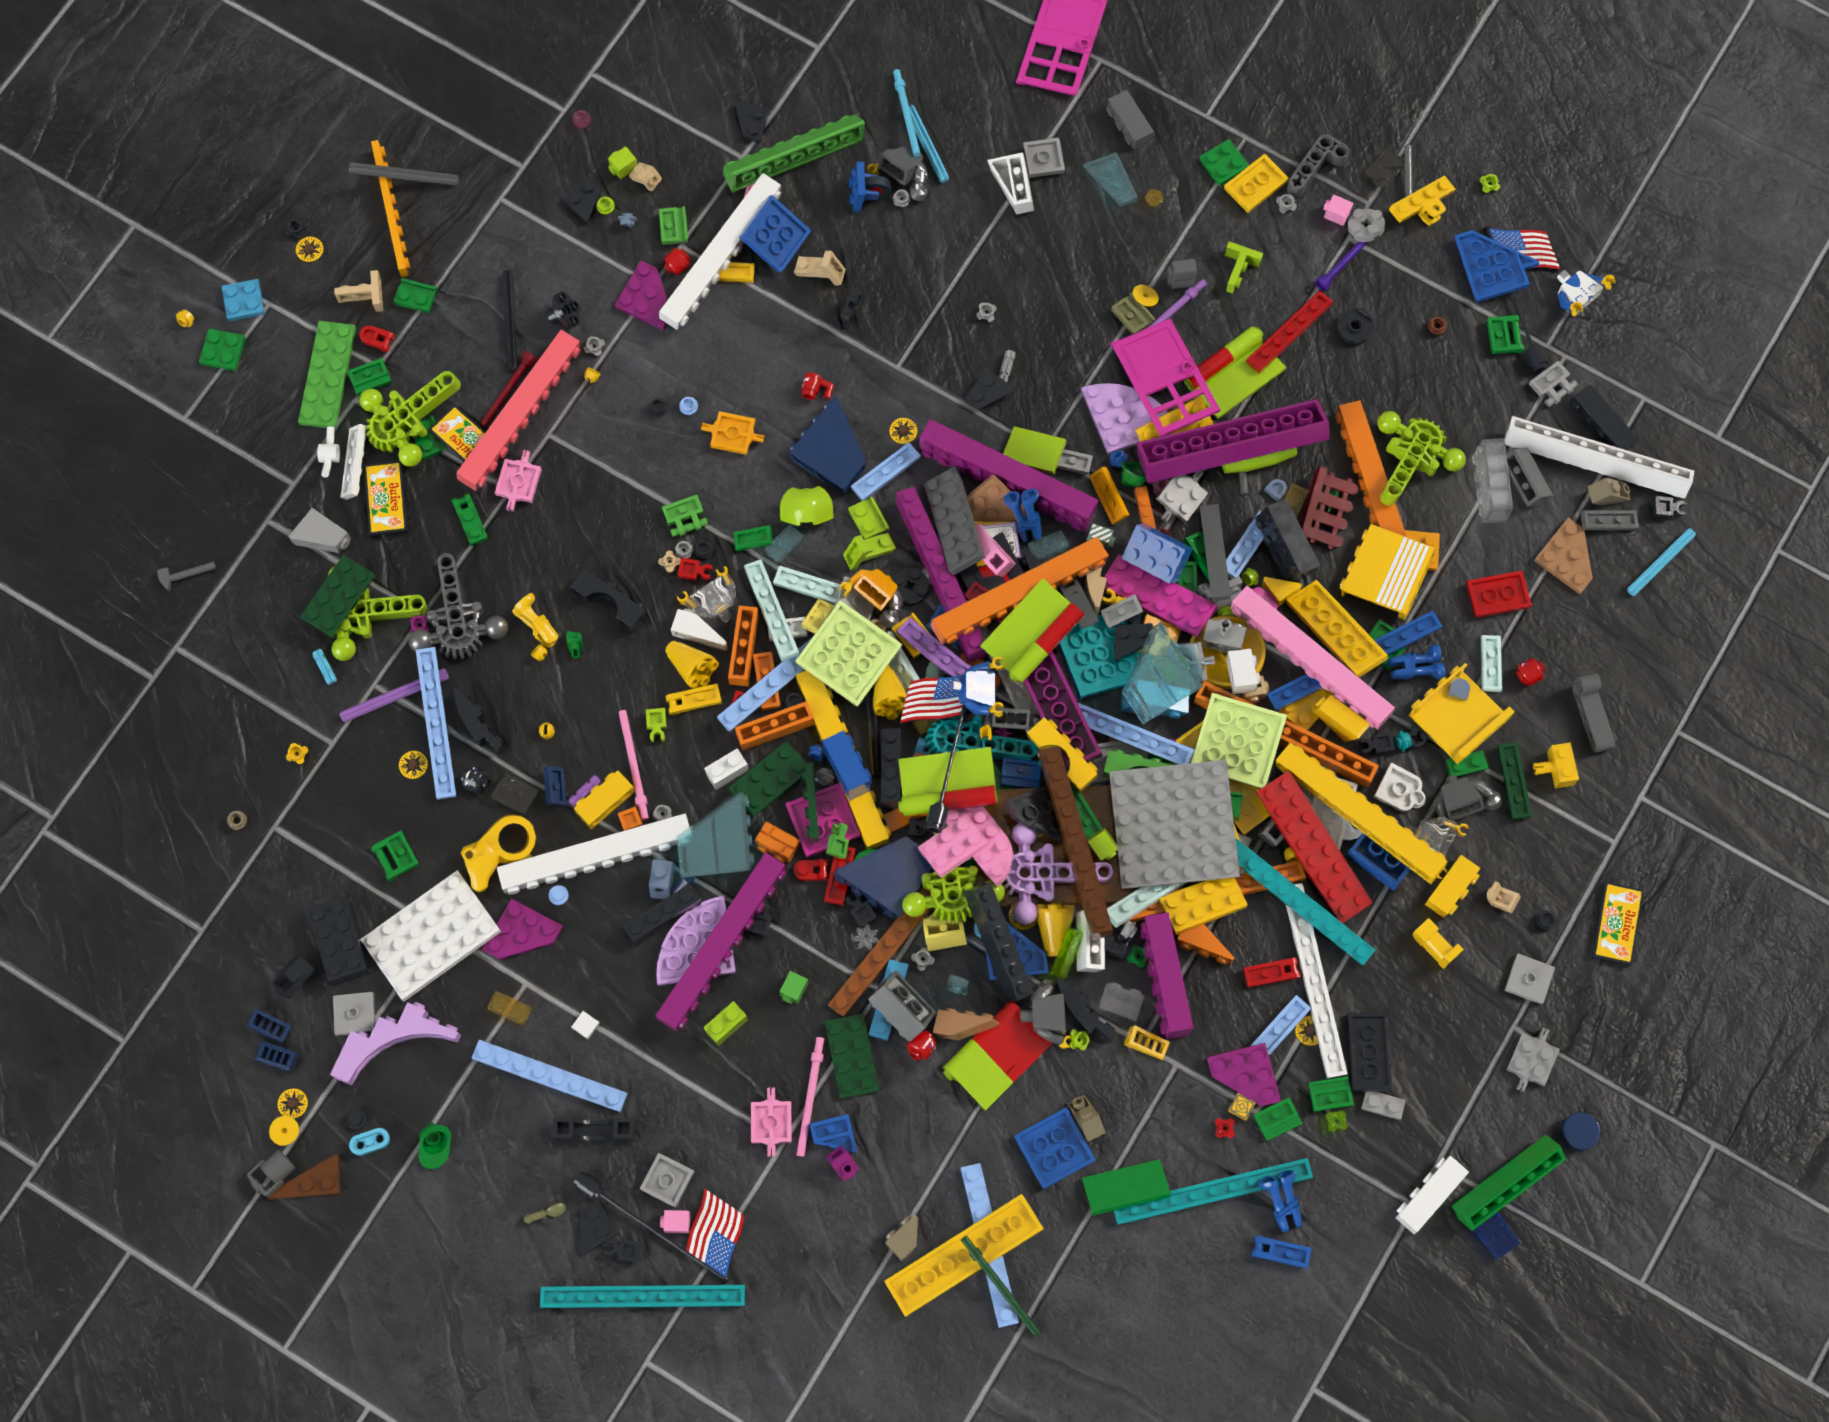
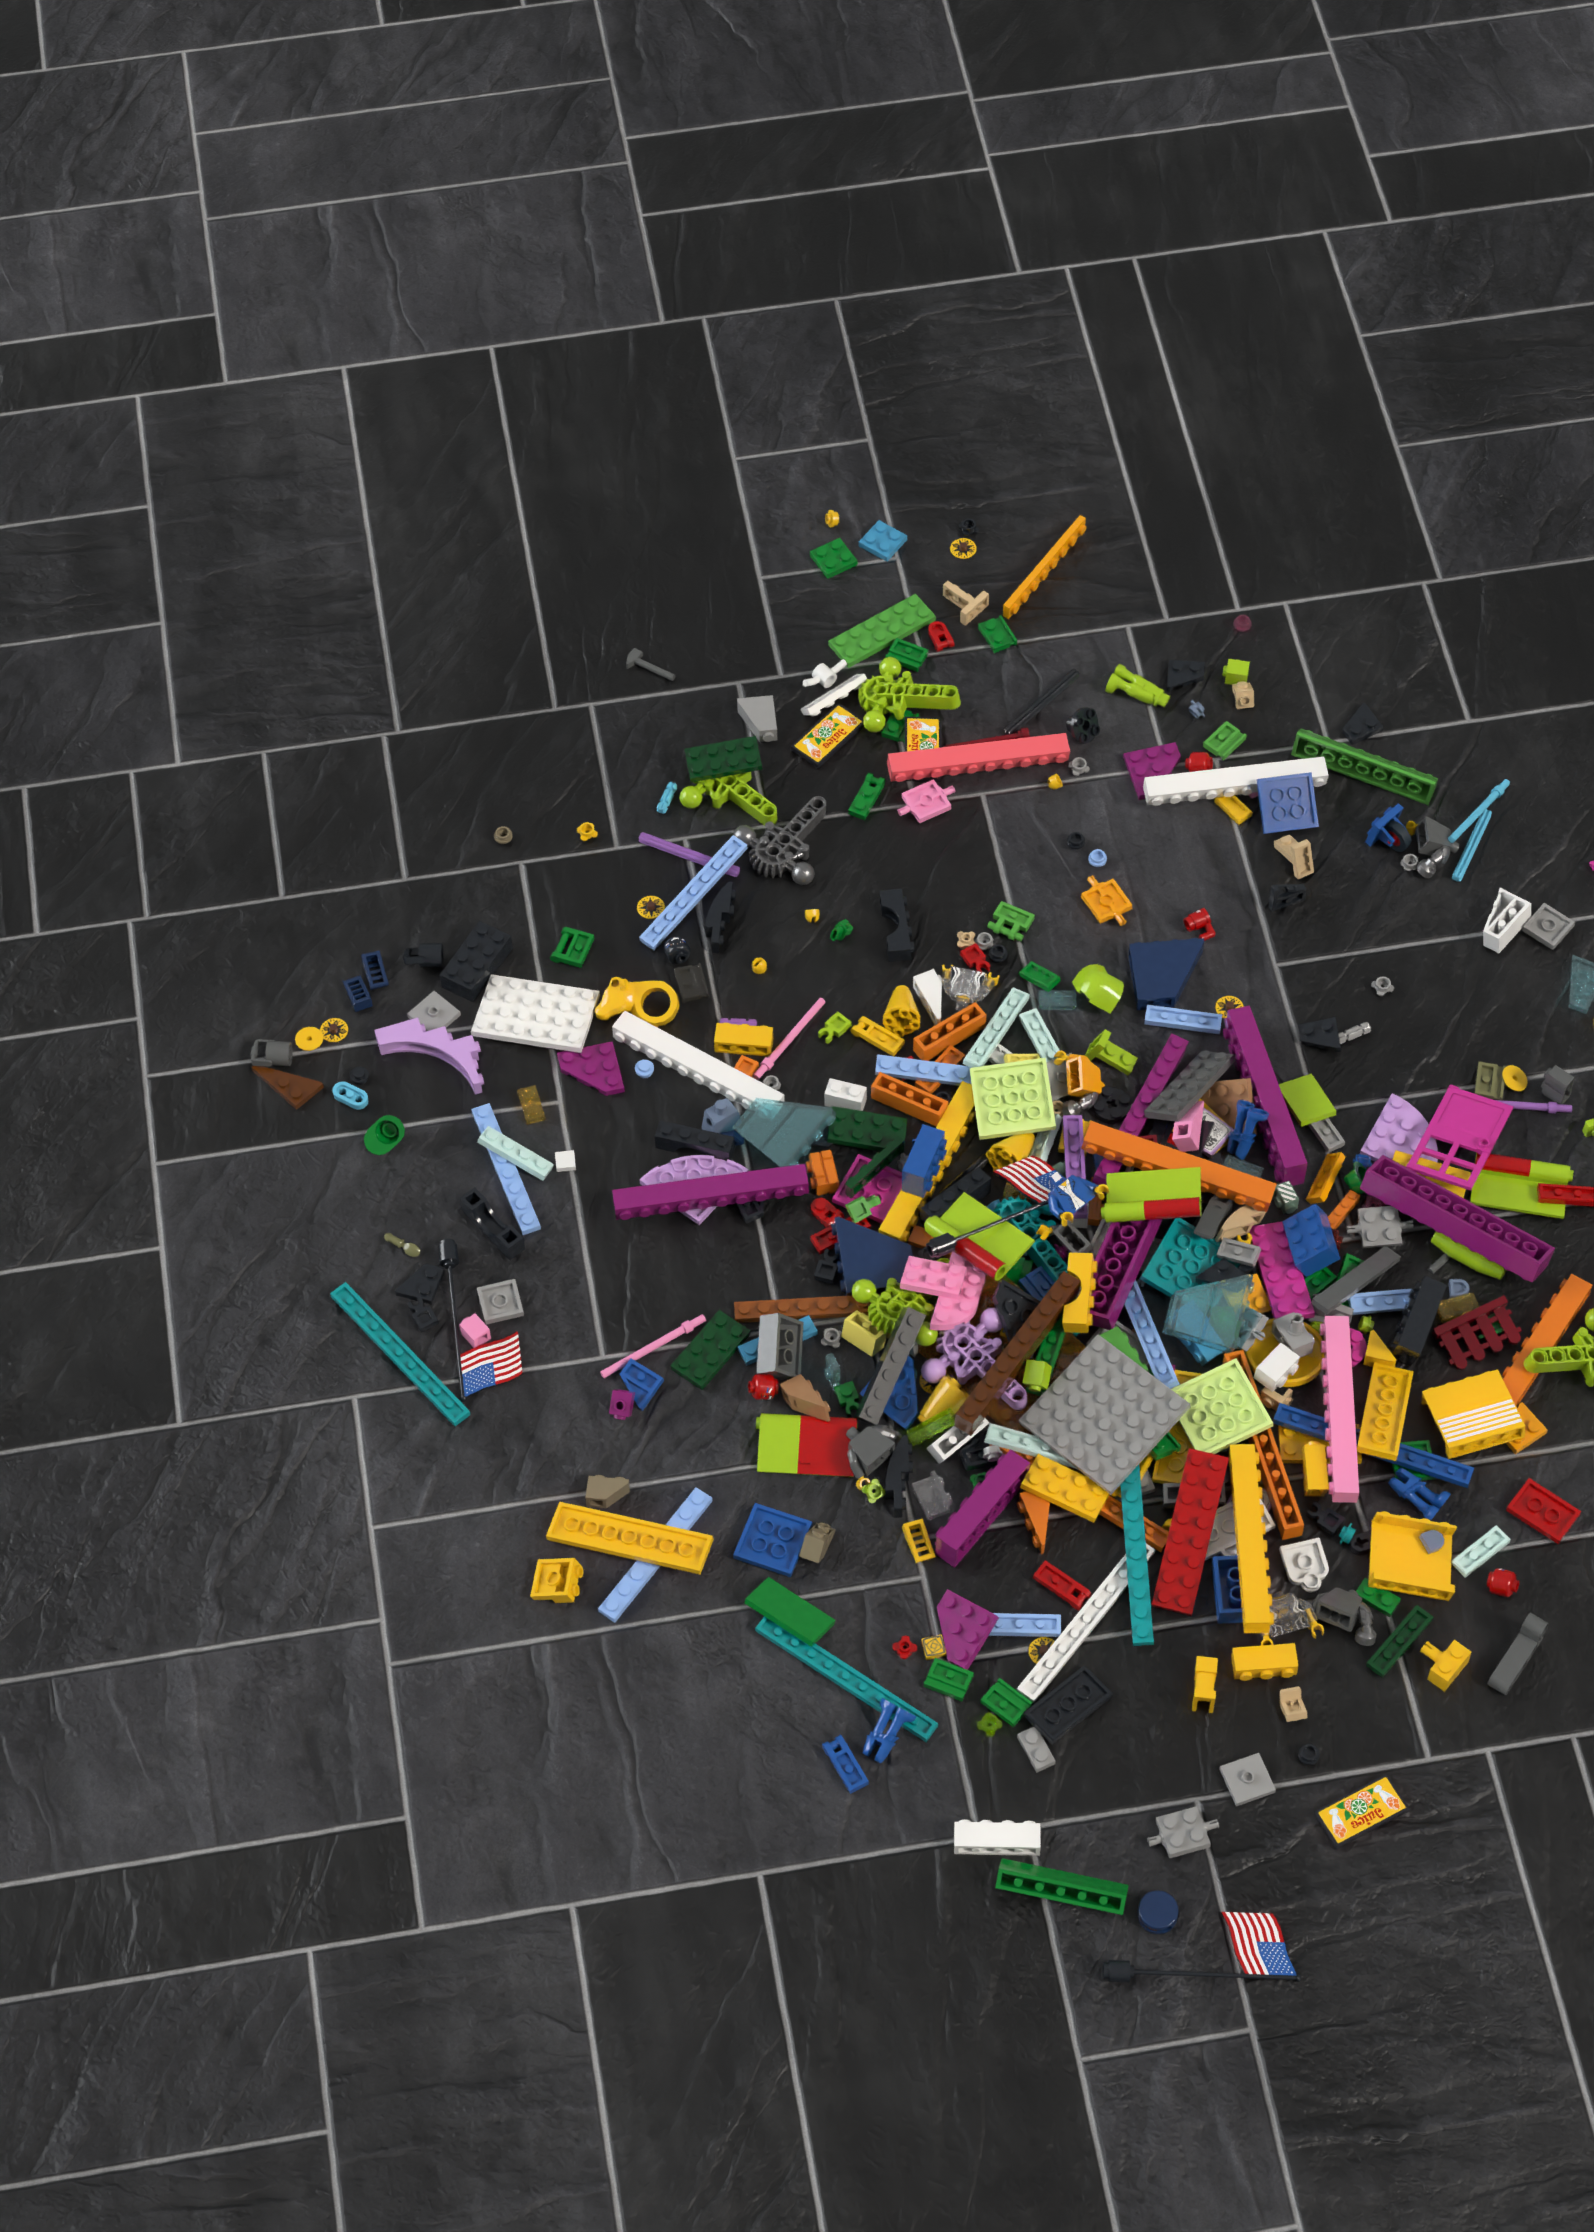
camera: 50 degrees right, 15 degrees down
(402, 173) = (1077, 551): dark grey axle -> none
(419, 620) = (758, 826): magenta plate -> none
(541, 627) = (832, 876): yellow piece -> none
(546, 1058) = (515, 1153): none -> light aqua plate
(554, 786) = (722, 1001): dark blue plate -> none
(568, 241) = (1137, 688): none -> lime piece
(605, 205) = (1193, 689): lime plate -> none
(725, 1023) = (653, 1246): lime brick -> none
(771, 1122) = (608, 1334): bright pink plate -> none
(793, 988) = (723, 1269): bright green brick -> none
(868, 518) = (1136, 1037): lime plate -> none
(868, 940) = (811, 1288): clear plant -> none
(949, 1339) = (557, 1580): none -> yellow plate
(976, 1255) = (635, 1540): dark green bar -> none
(980, 990) = (847, 1396): none -> green plate
(1497, 1236) = (1010, 1913): clear blue plate -> none
(1660, 1087) = (1256, 1944): none -> flag

